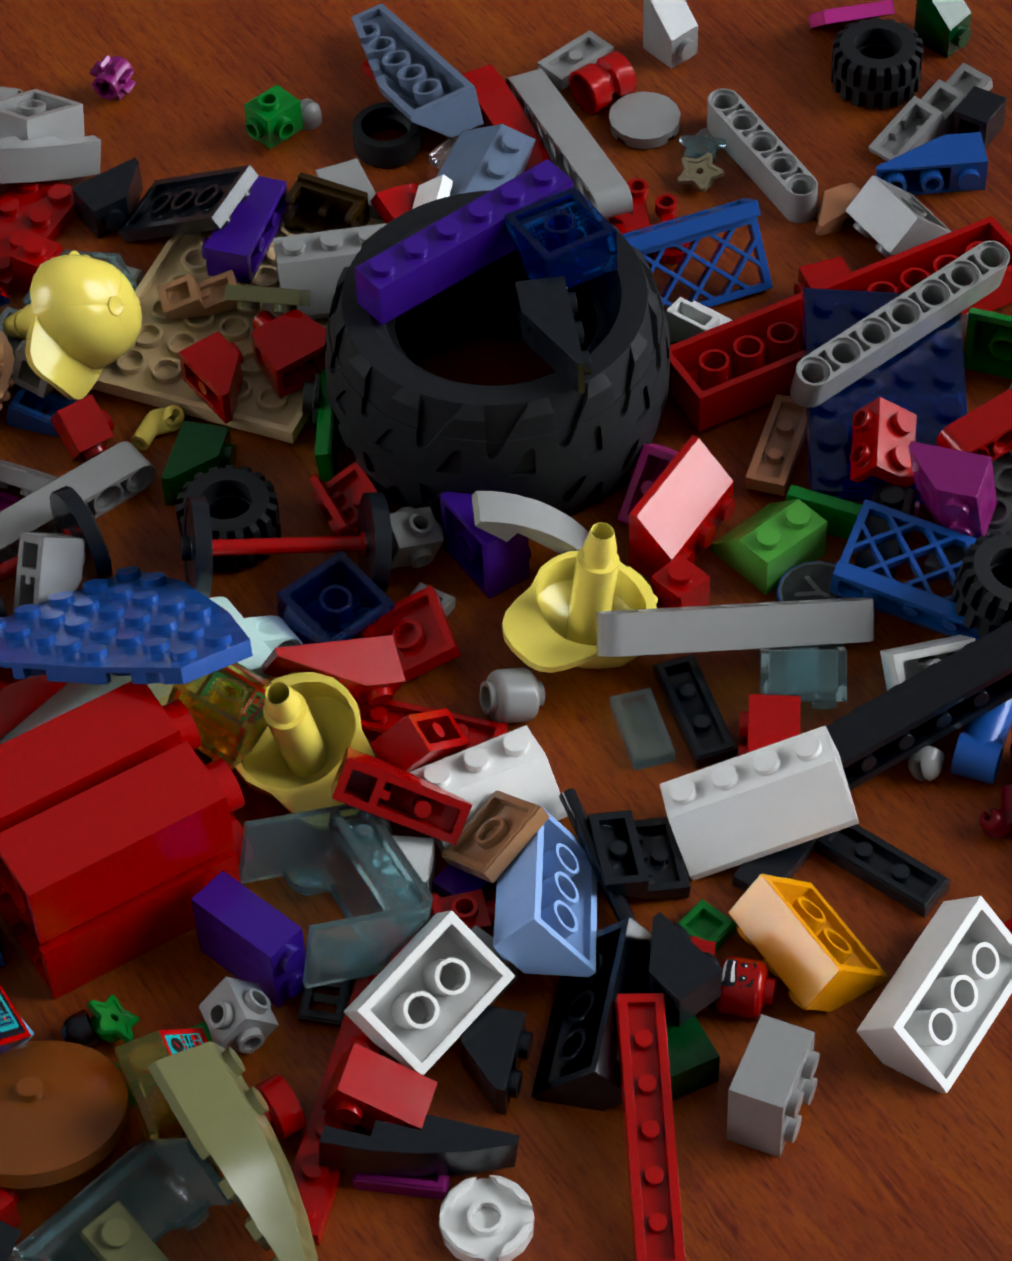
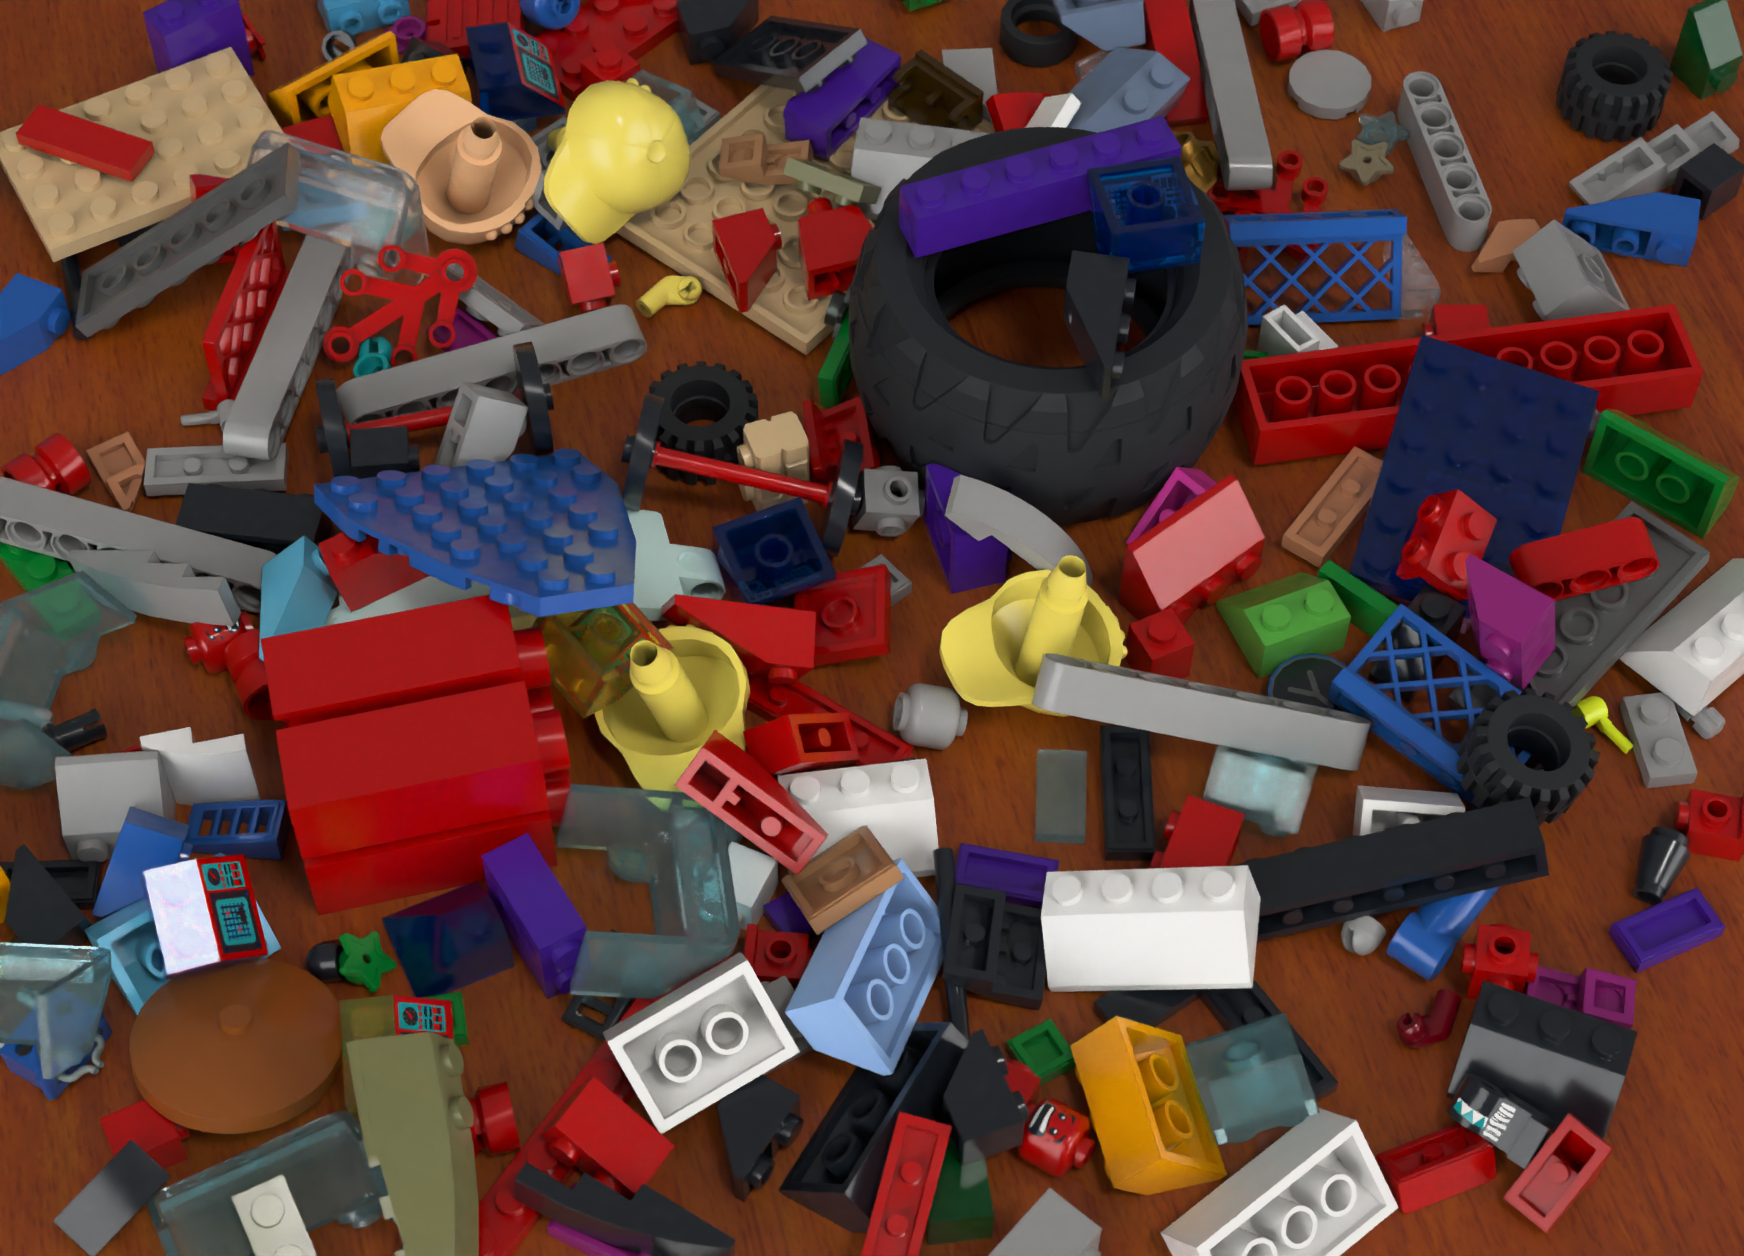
camera: 15 degrees right, 5 degrees up
(175, 981) = (450, 940): none -> clear blue slope
(195, 451) = (694, 336): dark green slope -> none
(238, 1015) = (494, 999): light grey brick -> none
(305, 515) = (774, 447): none -> tan brick
(639, 796) = (1005, 871): none -> dark purple tile
(781, 256) = (1418, 283): none -> clear slope
(851, 13) = (1605, 21): dark pink tile -> none
(884, 895) = (1252, 1079): none -> clear light blue slope
(949, 292) = (1500, 422): light grey beam -> none

